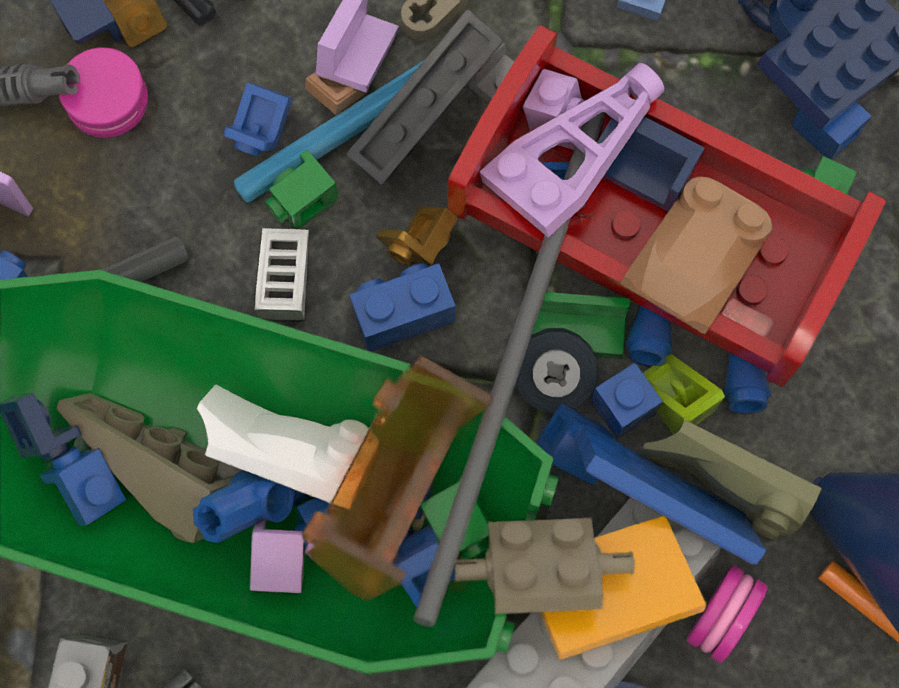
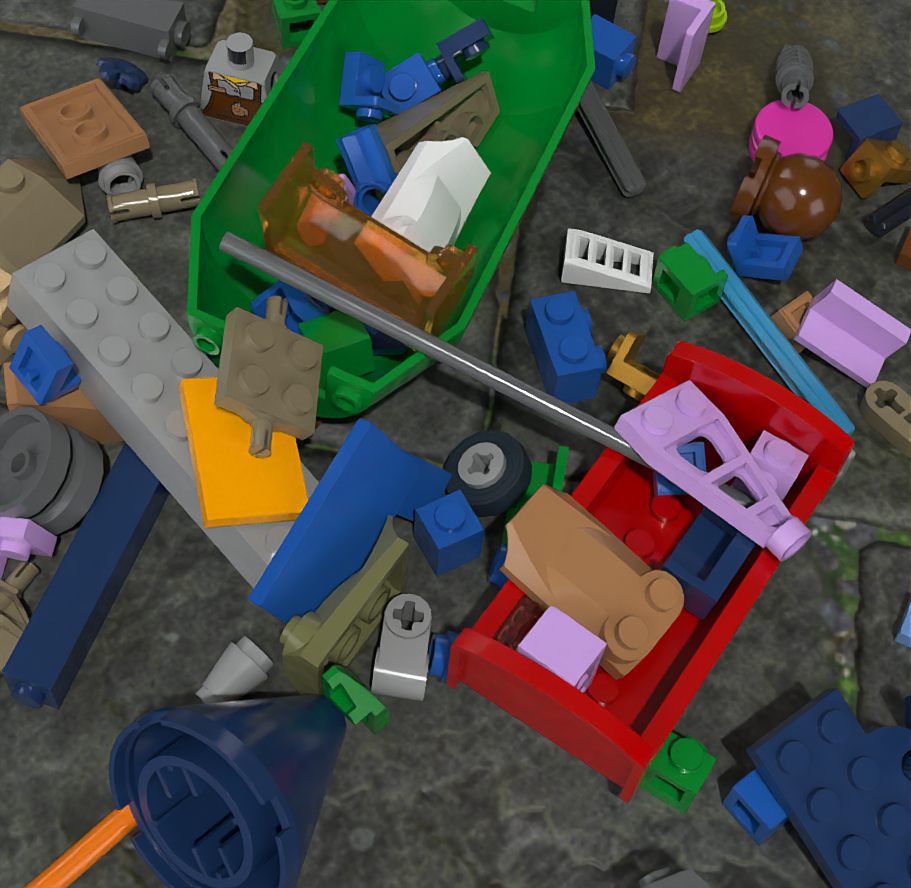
camera: 90 degrees right, 15 degrees down
(109, 533) = (362, 87): none -> blue bracket
(190, 92) = (789, 192): none -> reddish brown tile
(425, 97) = (813, 376): black brick -> none
(683, 392) = (450, 587): lime slope -> none
(727, 613) = (208, 589): dark pink head -> none
(757, 429) = (402, 653): none -> light grey piece
(792, 278) = (564, 648): none -> lavender panel
(794, 581) = (236, 673): none -> light grey cone
(813, 461) = (354, 699): none -> green slope

